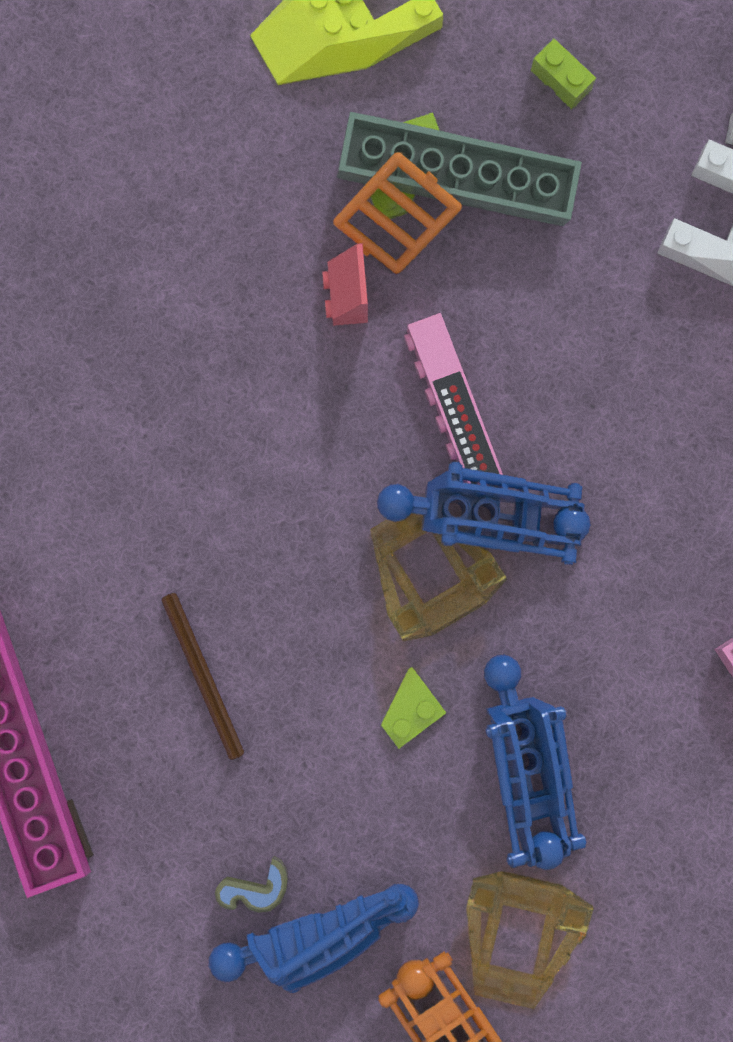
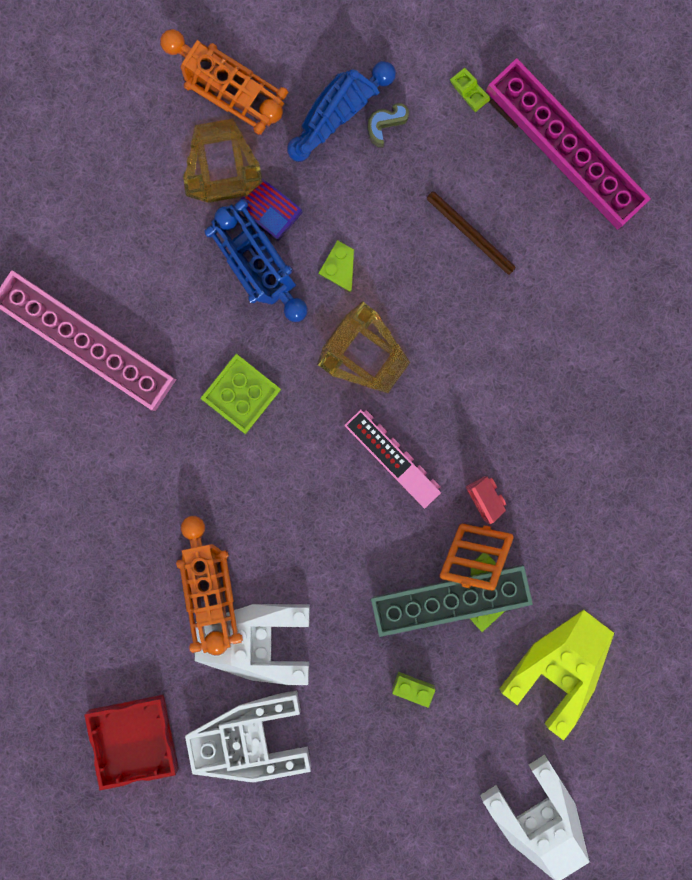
camera: 160 degrees right, 5 degrees up
(112, 884) = (469, 89): none -> lime slope
(476, 833) = (271, 210): none -> slope
(570, 522) = (293, 416): blue piece -> none
(631, 588) = (240, 394): none -> lime plate

